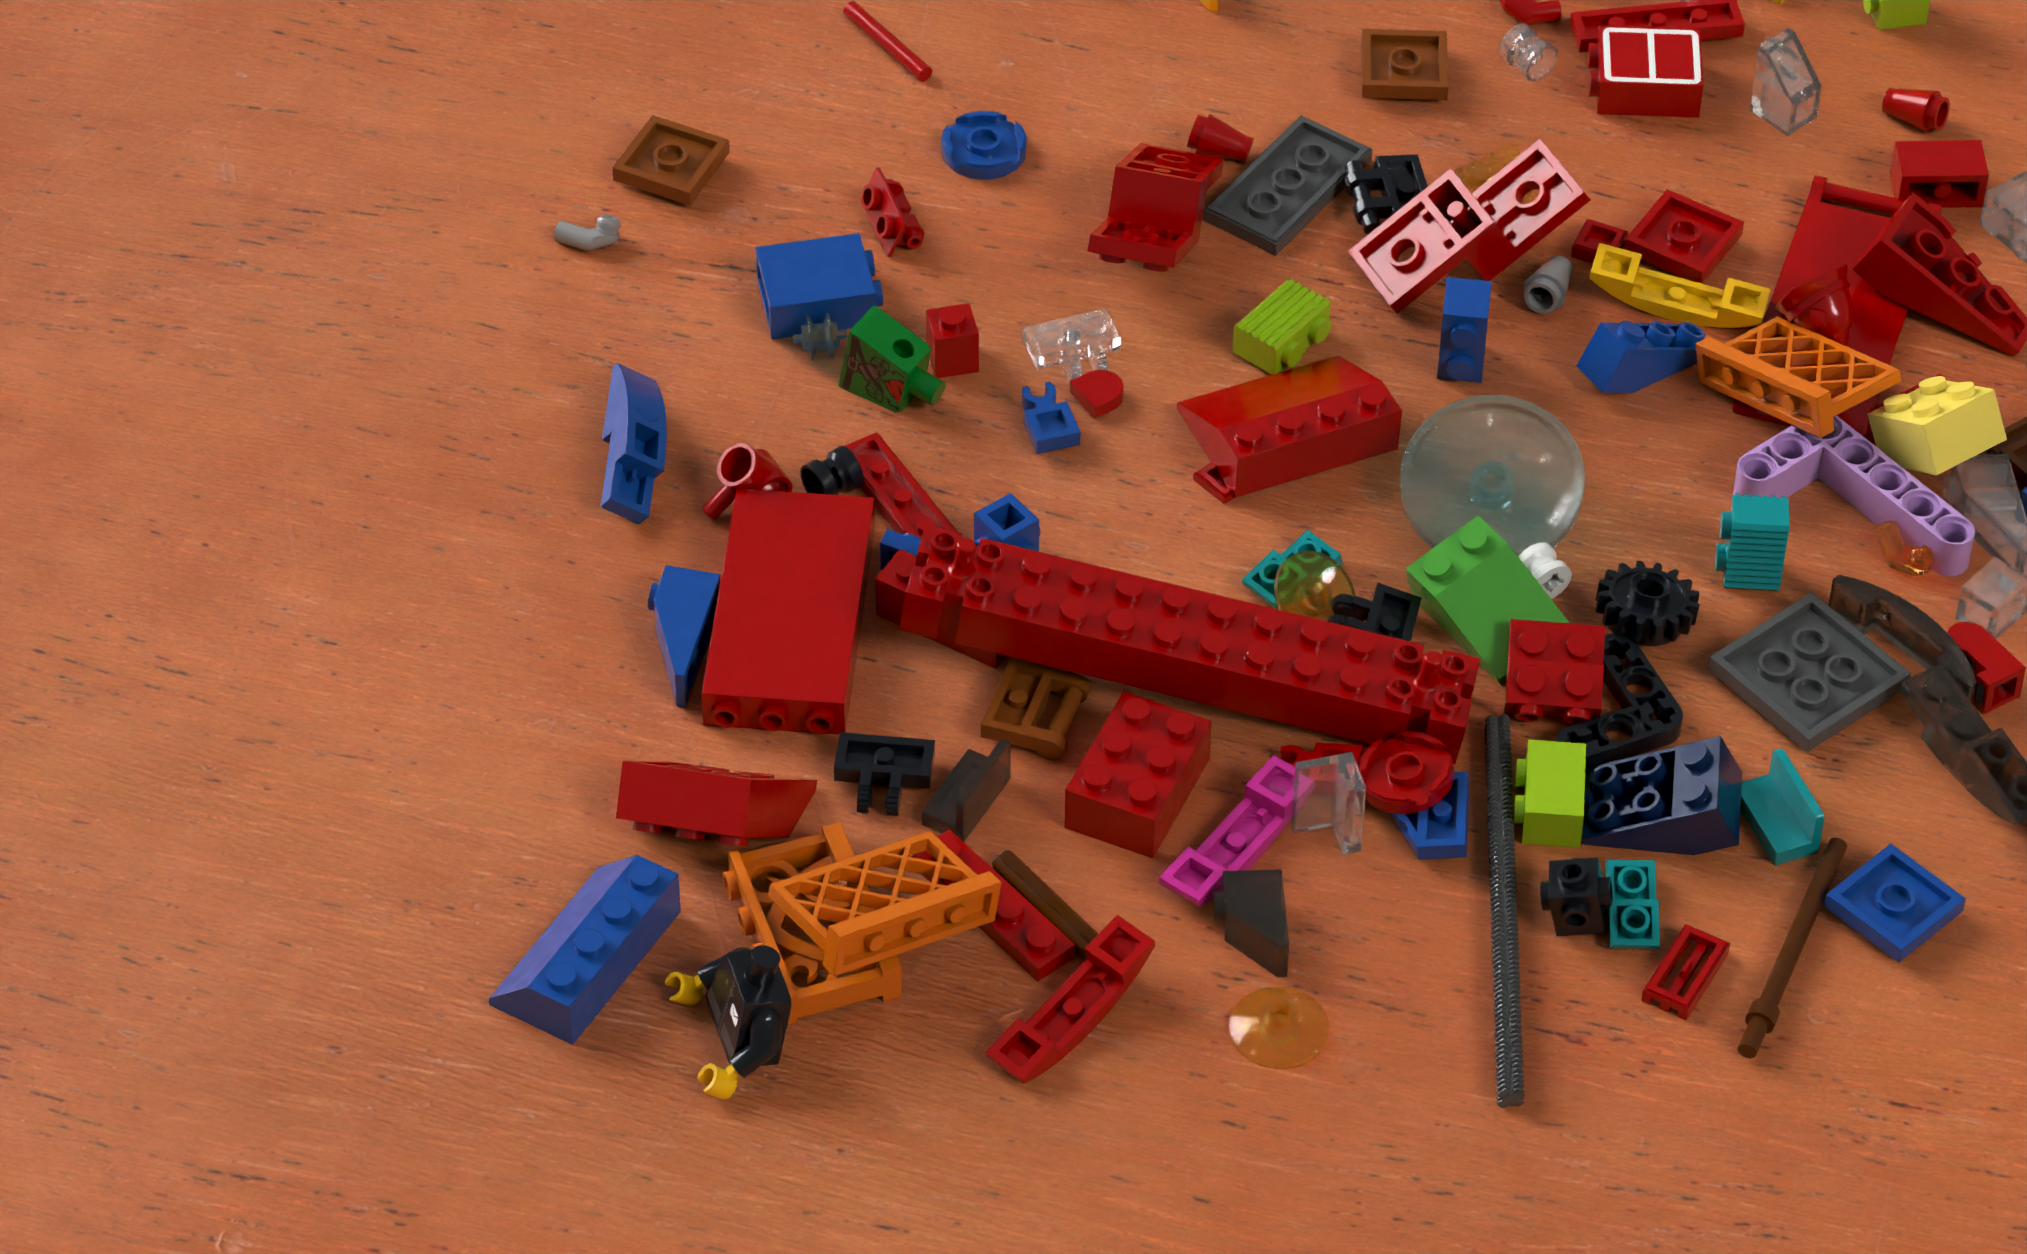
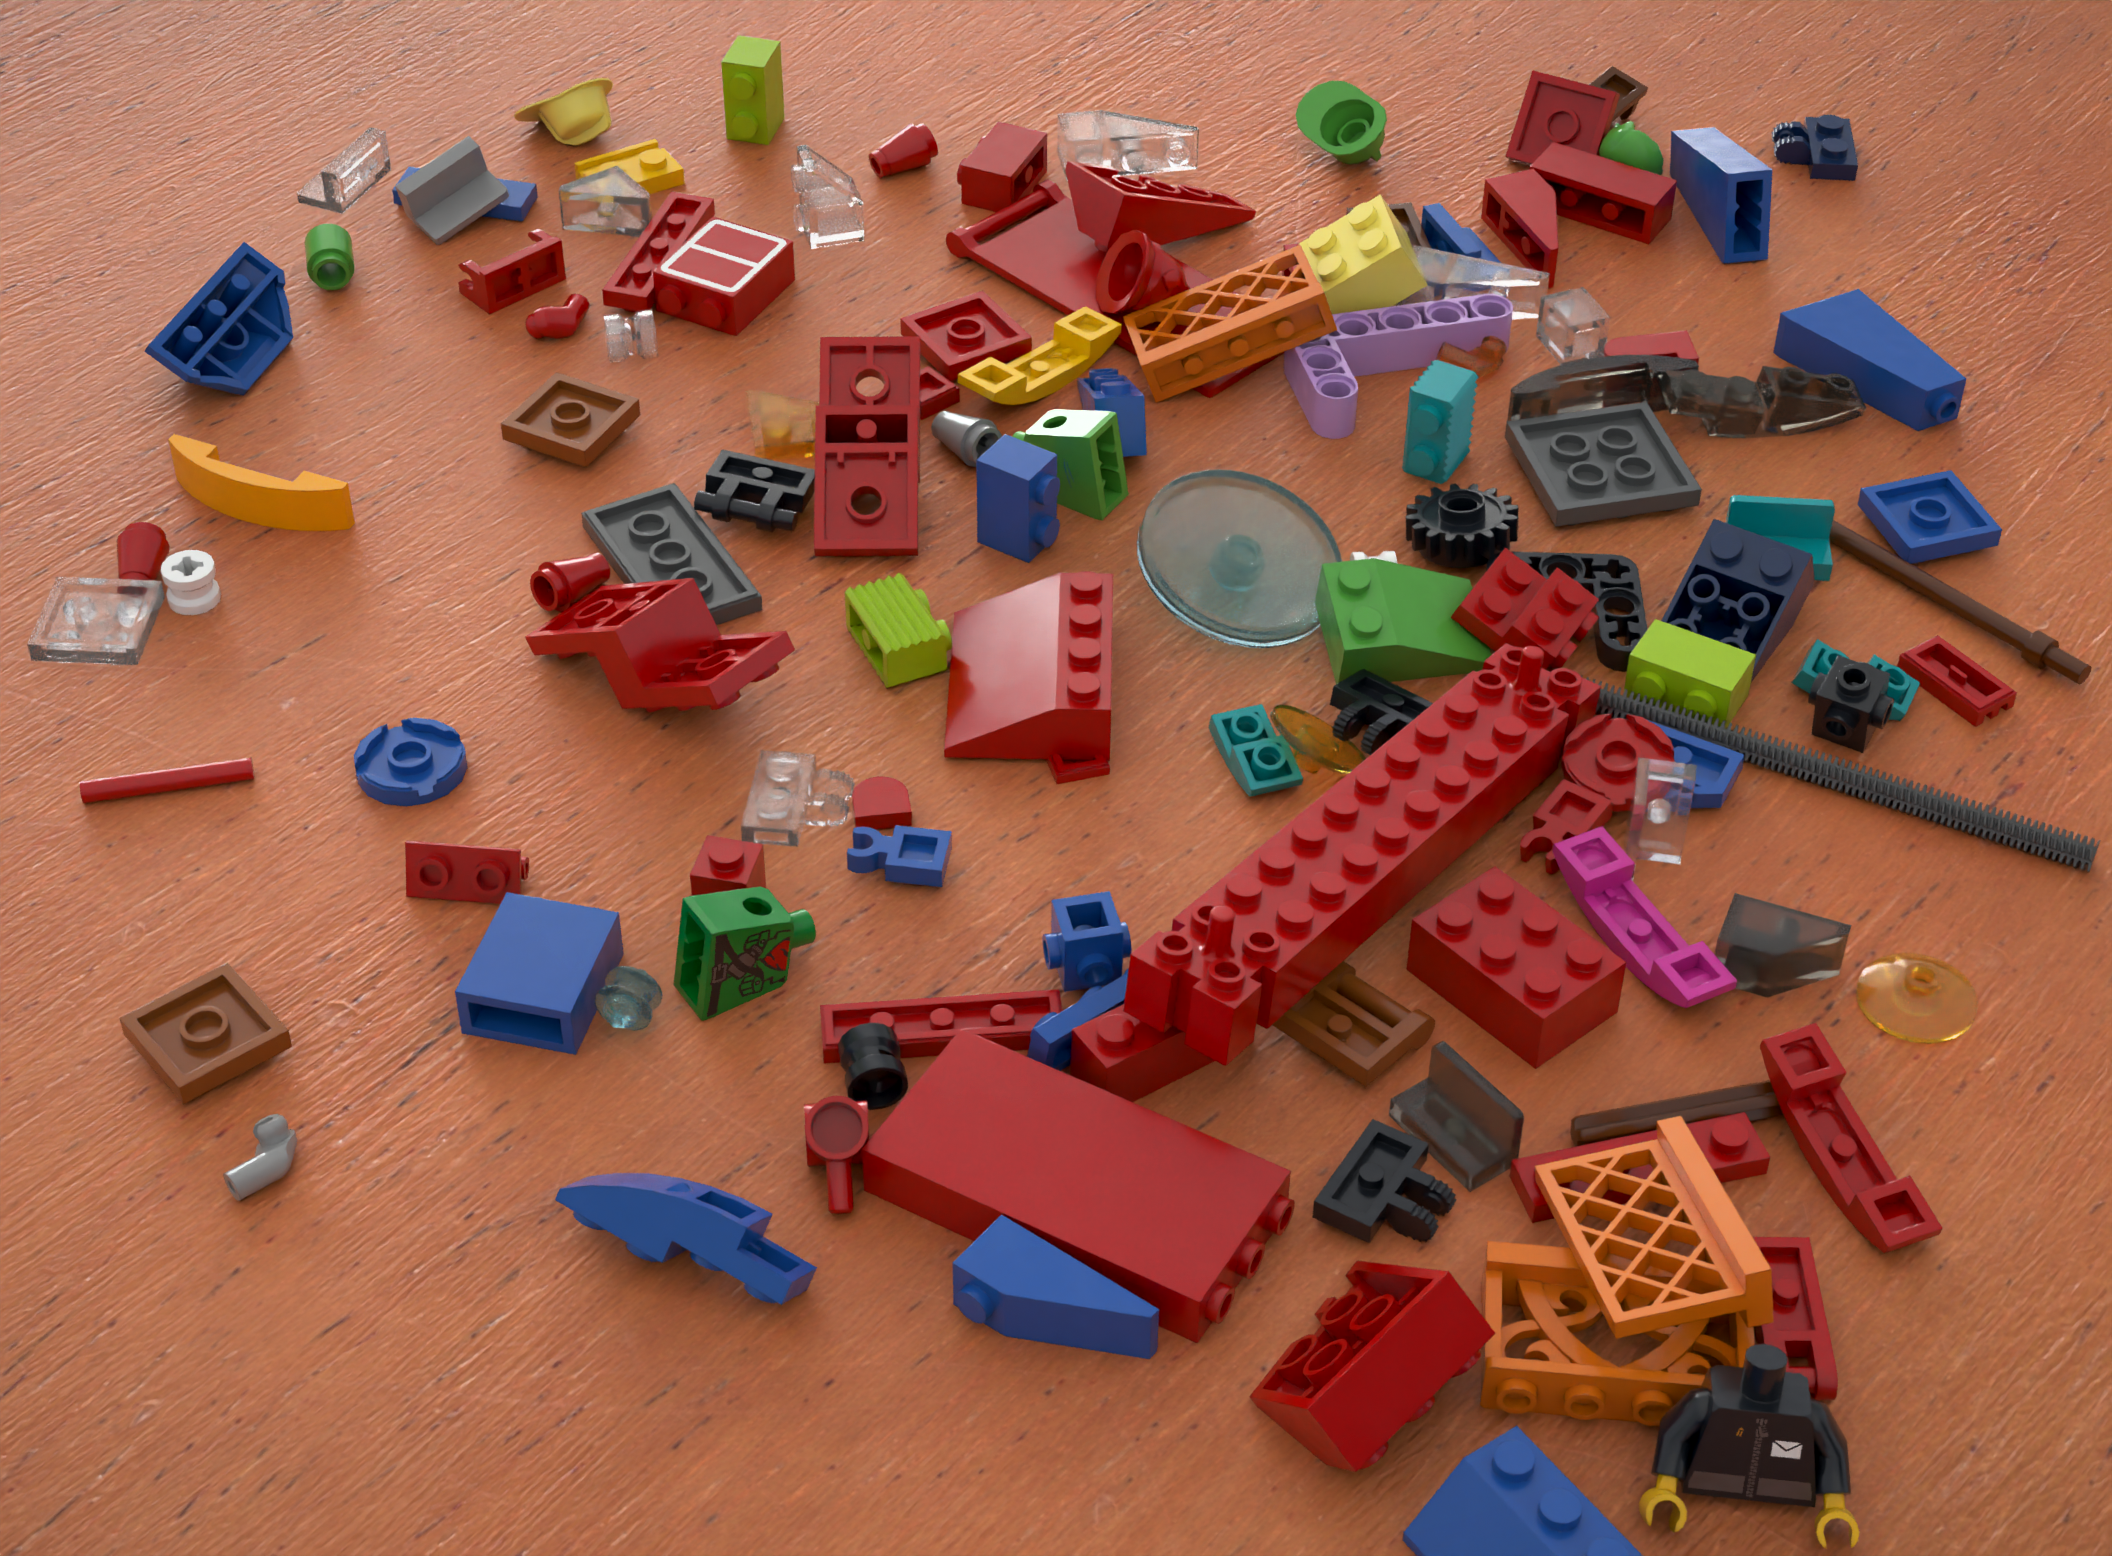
camera: 65 degrees left, 5 degrees down
(888, 1014) = (1799, 1313): none -> red plate
(1551, 340) = (1087, 458): none -> bright green torso

